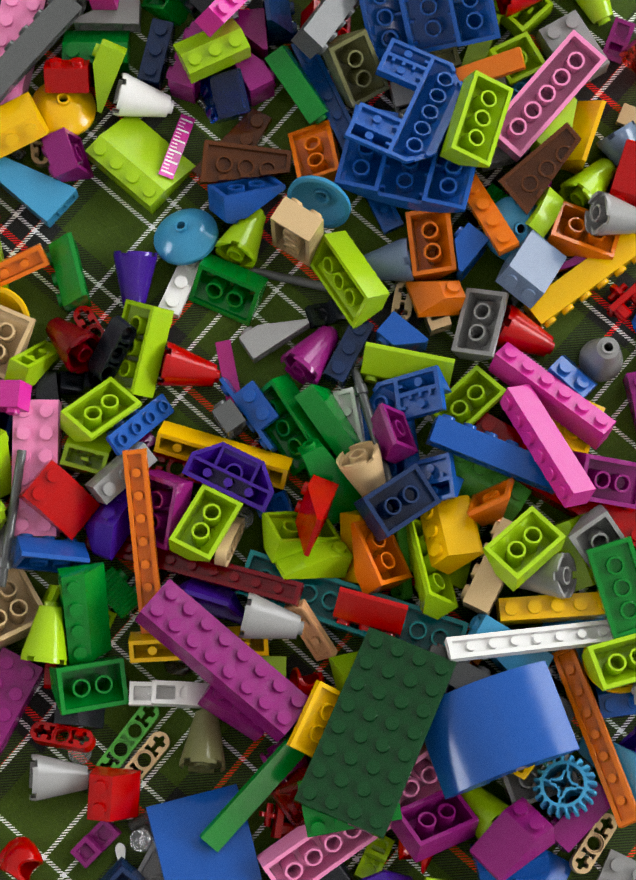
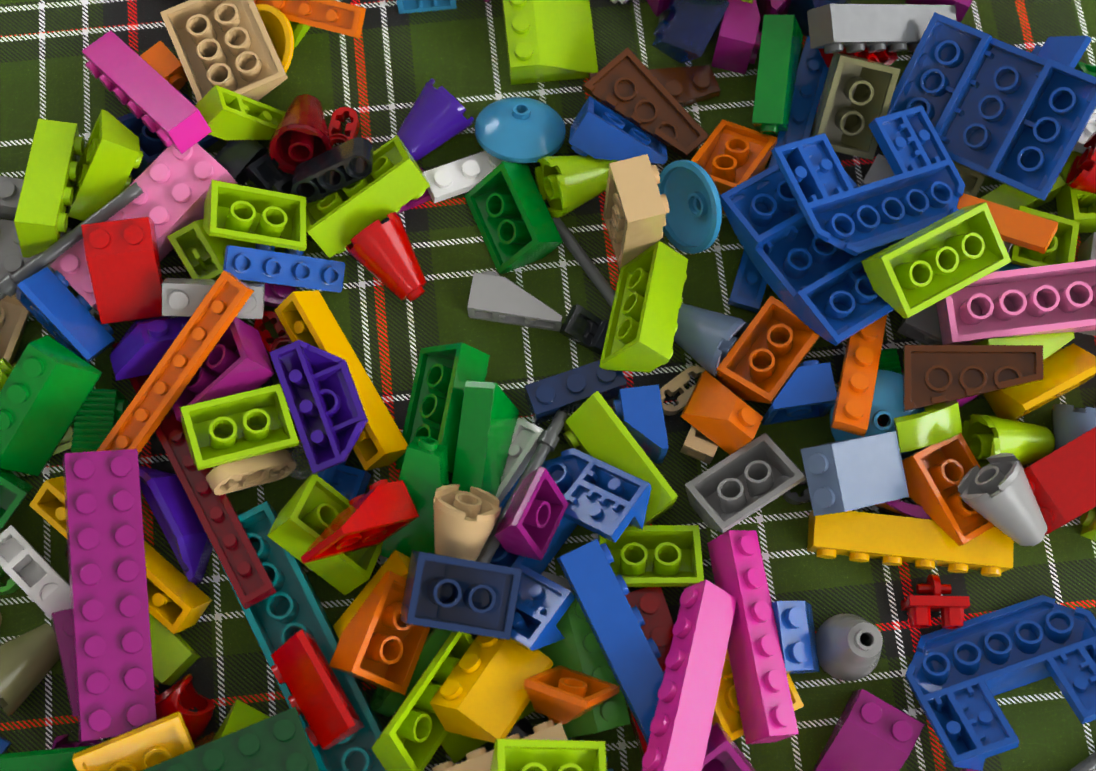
camera: 40 degrees right, 5 degrees down
(68, 273) = (371, 66): green slope -> none
(176, 146) = (595, 37): dark pink sticker -> none
(227, 364) = (429, 310): dark pink sticker -> none
(229, 419) = (381, 346): dark grey brick -> none
(255, 407) = (419, 362): blue bracket -> none
(269, 621) = (200, 594): light grey cone -> none
(311, 355) = (532, 357): magenta cone -> none
(313, 632) = (243, 650): light nougat tile -> none
(324, 561) = (322, 583): lime slope -> none
(524, 333) = (784, 539): red cone -> none

